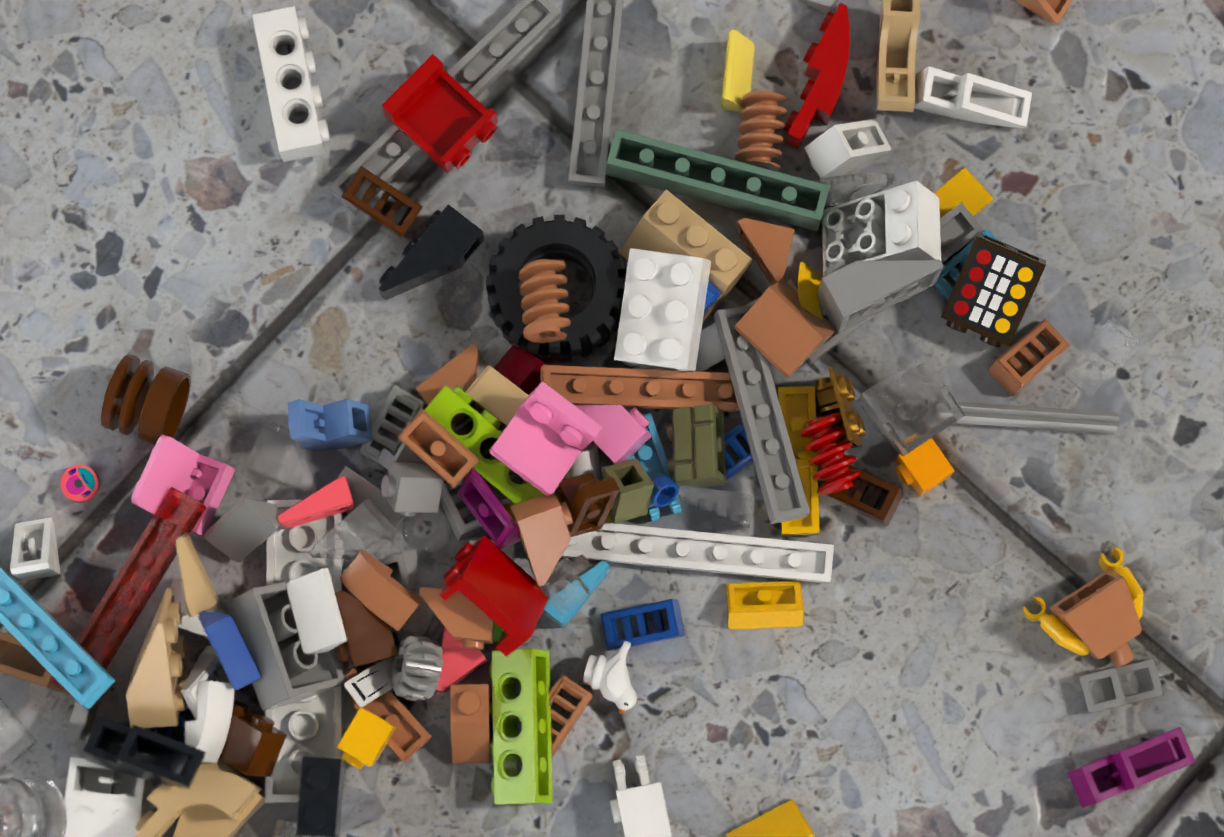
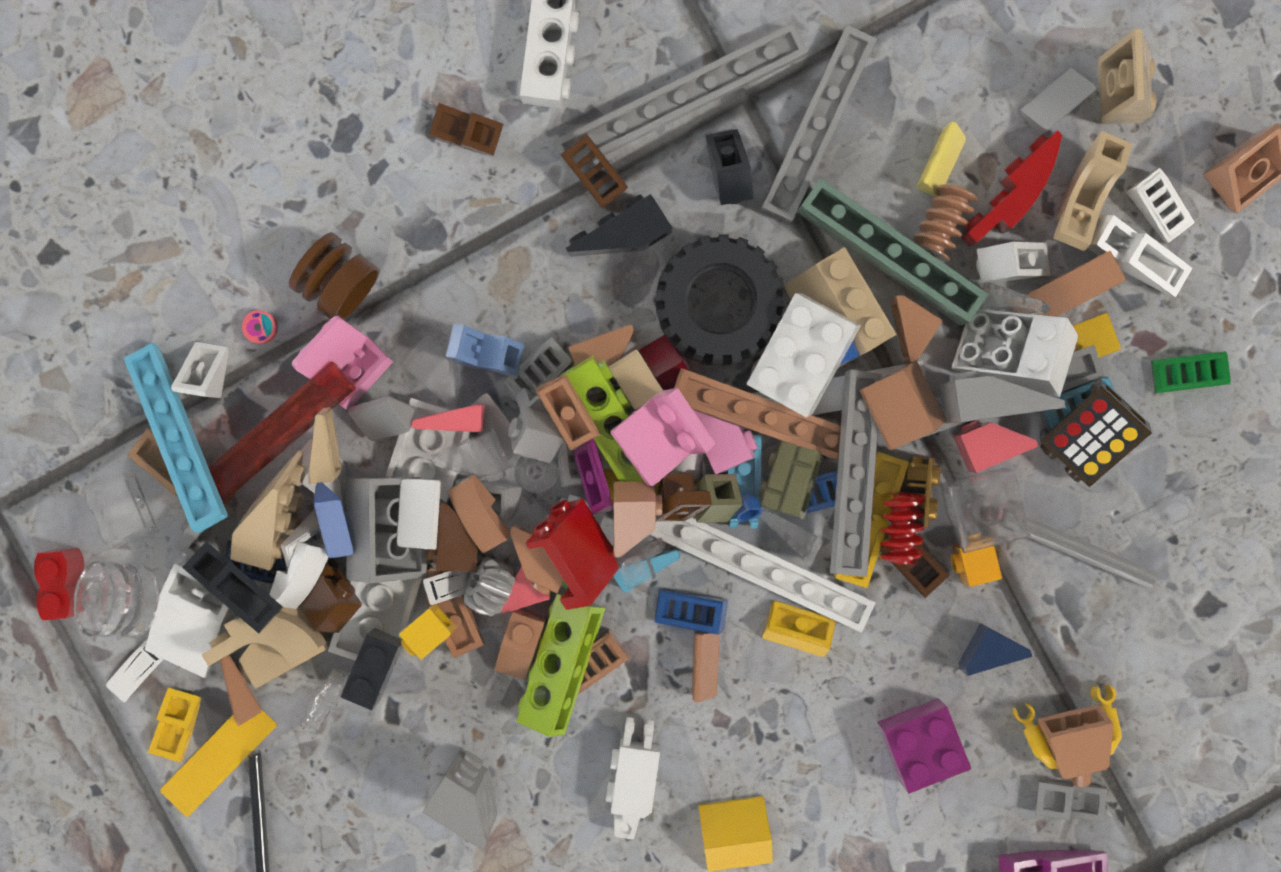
camera: 20 degrees right, 10 degrees up
(233, 207) = (465, 130): none -> reddish brown slope
(440, 115) = (671, 110): red panel -> none
(522, 153) = (730, 167): none -> black slope
(541, 300) = (703, 313): nougat piece -> none
(612, 678) = (650, 649): white animal -> none
(678, 676) = (705, 666): none -> nougat slope
(808, 287) = (934, 376): yellow sticker -> none
(892, 339) = (989, 444): none -> coral slope
(923, 146) = (1079, 284): none -> nougat slope
(941, 678) = (924, 745): none -> magenta brick
(974, 550) = (990, 650): none -> dark blue slope
(984, 32) = (1165, 189): none -> white slope
(1012, 373) = (1080, 508): nougat slope -> none
(1099, 183) = (1218, 369): none -> green slope

